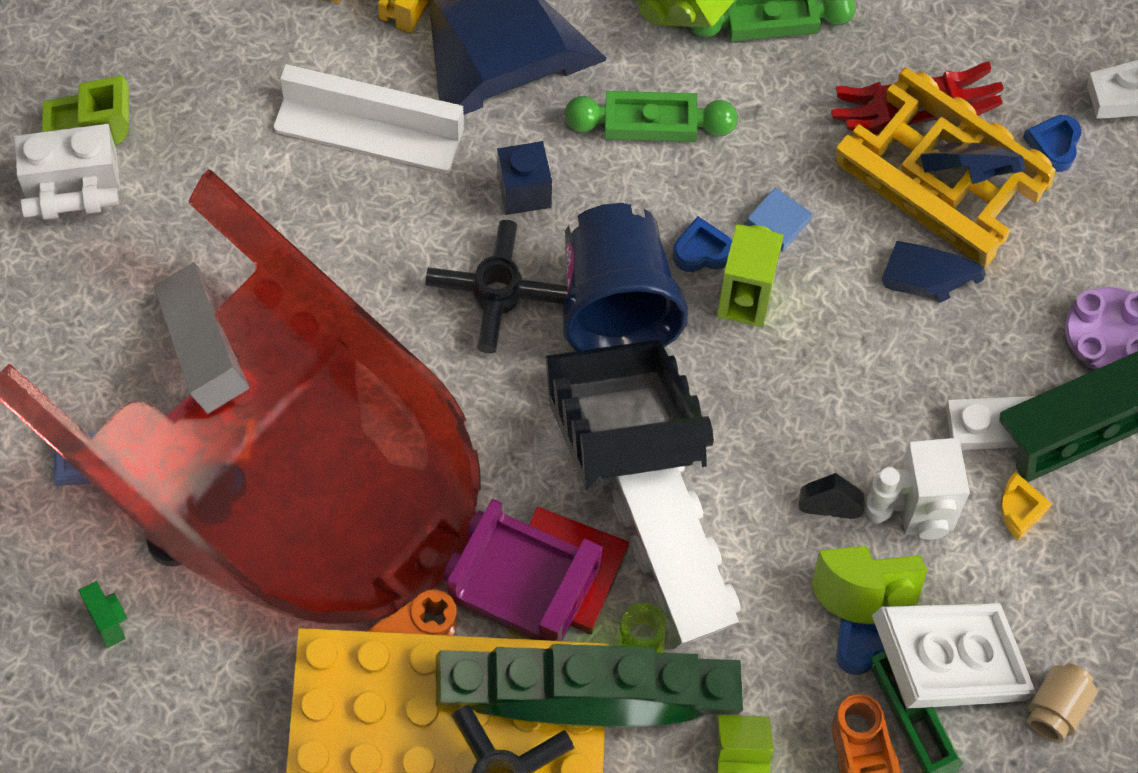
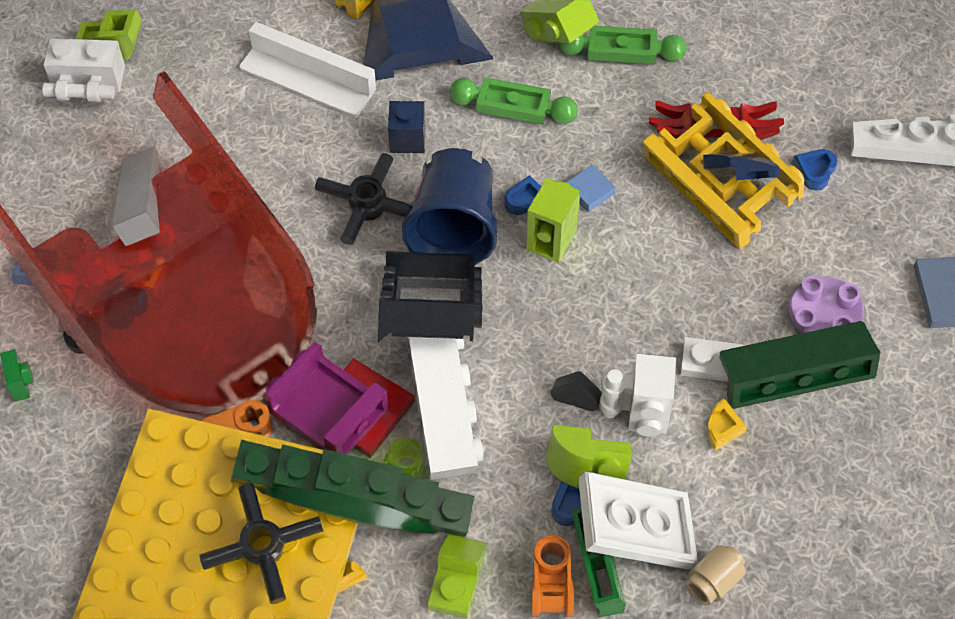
camera: 15 degrees right, 5 degrees down
(928, 271) = (694, 242): dark blue slope -> none

